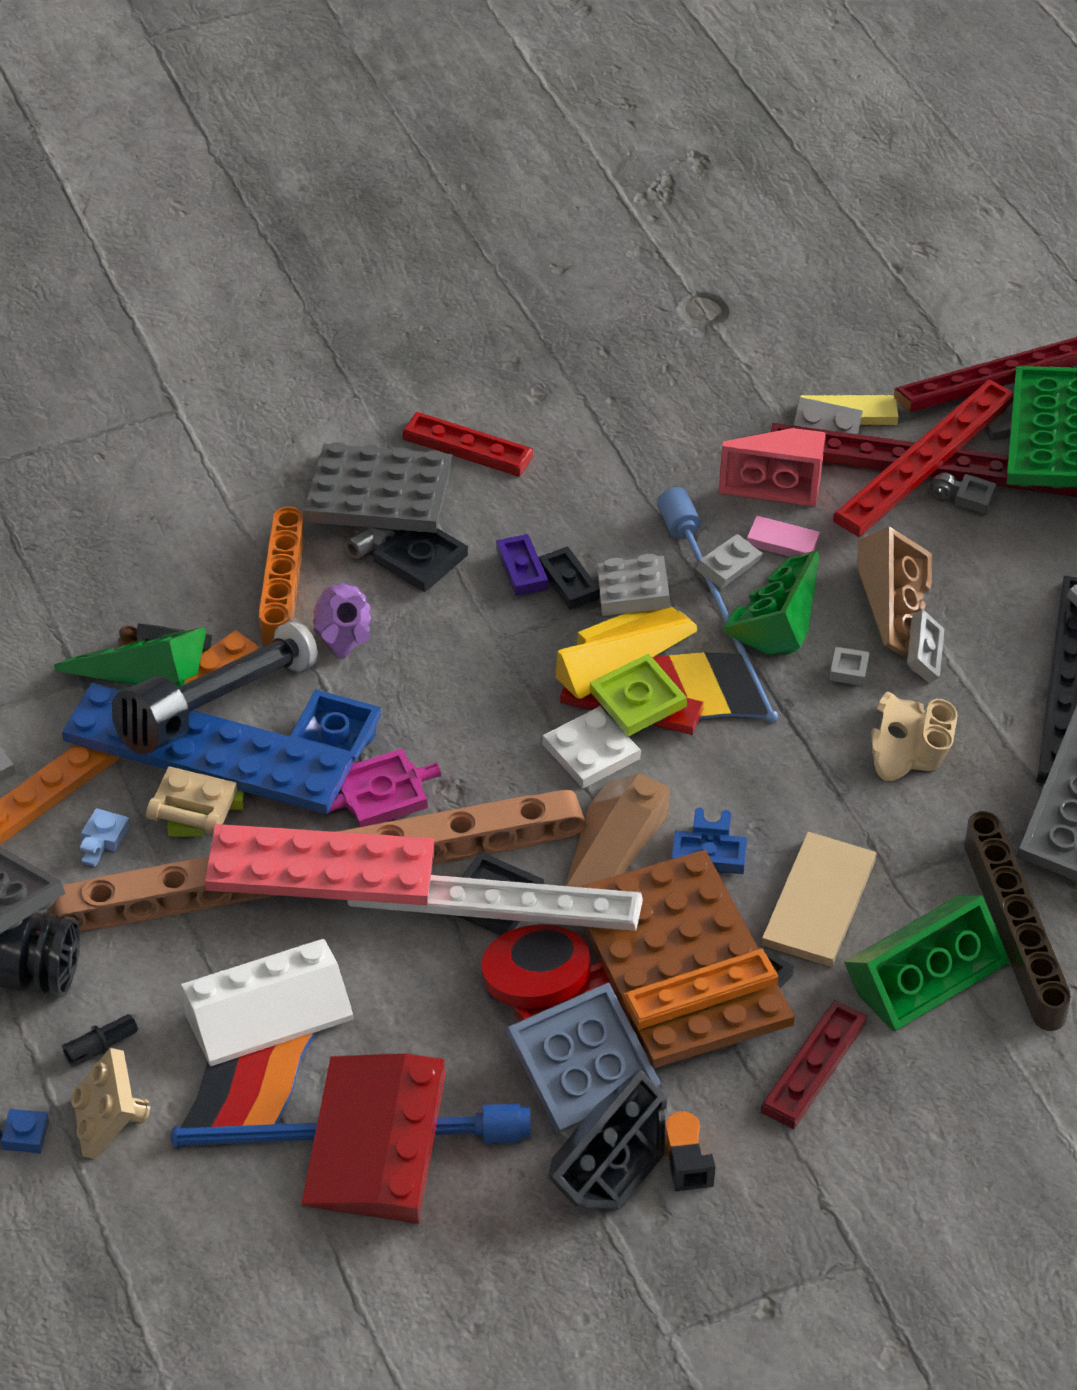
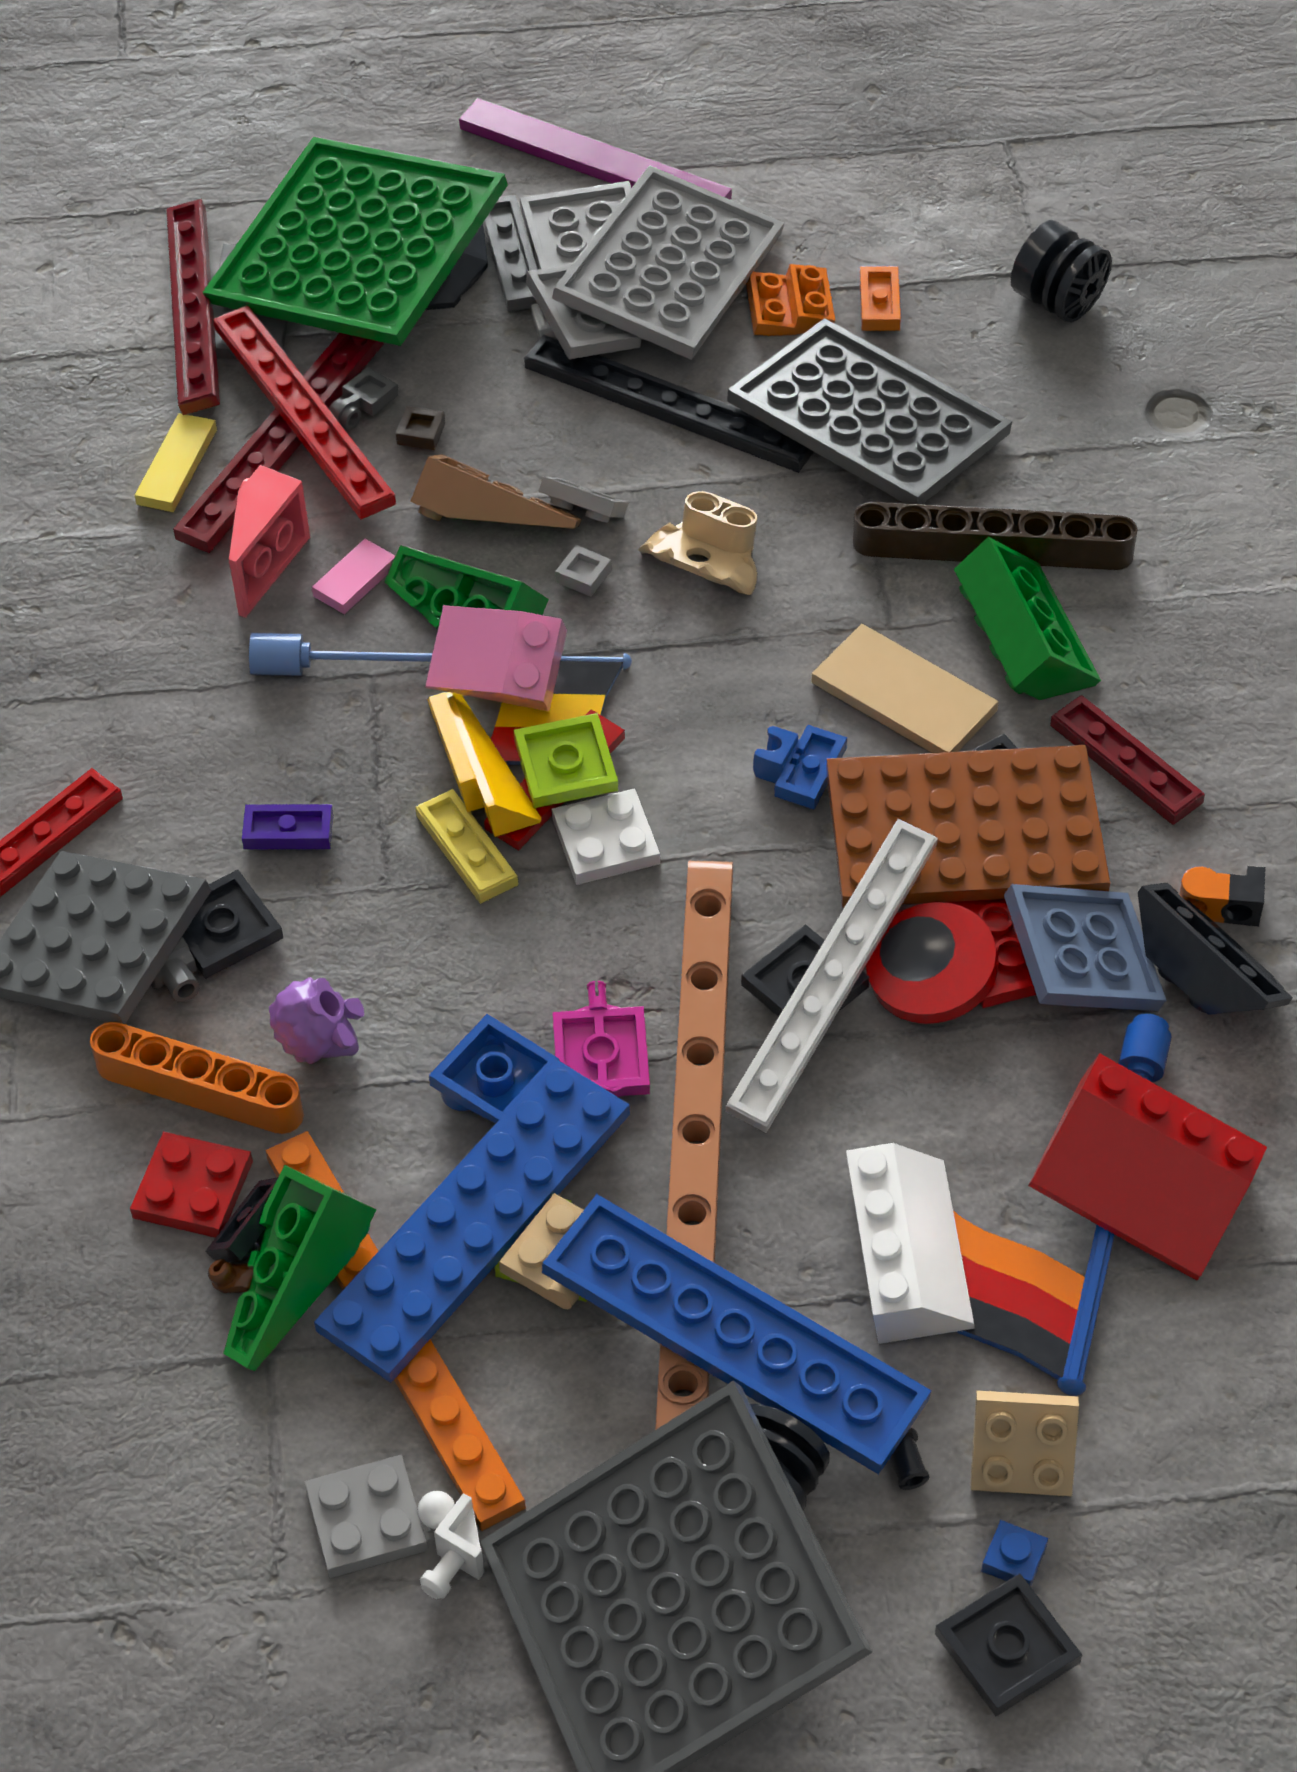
camera: 70 degrees left, 5 degrees up
(102, 832) = (558, 1372): light blue plate -> none
(139, 908) = (737, 1332): none -> blue plate
(158, 710) = (443, 1226): black piece -> none
(200, 602) = (191, 1184): none -> red plate
(320, 864) = (729, 1129): coral plate -> none
(538, 678) = (466, 846): none -> light yellow tile
(569, 578) = (333, 784): black plate -> none
(618, 827) = (738, 824): medium nougat wedge -> none
(633, 585) = (389, 720): light grey plate -> none
(700, 988) = (1037, 809): orange tile -> none
(718, 631) = (497, 655): none -> bright pink slope
(729, 561) = (377, 629): light grey plate -> none
(827, 416) = (189, 480): light grey plate -> none
(952, 533) = (420, 428): none -> dark brown plate

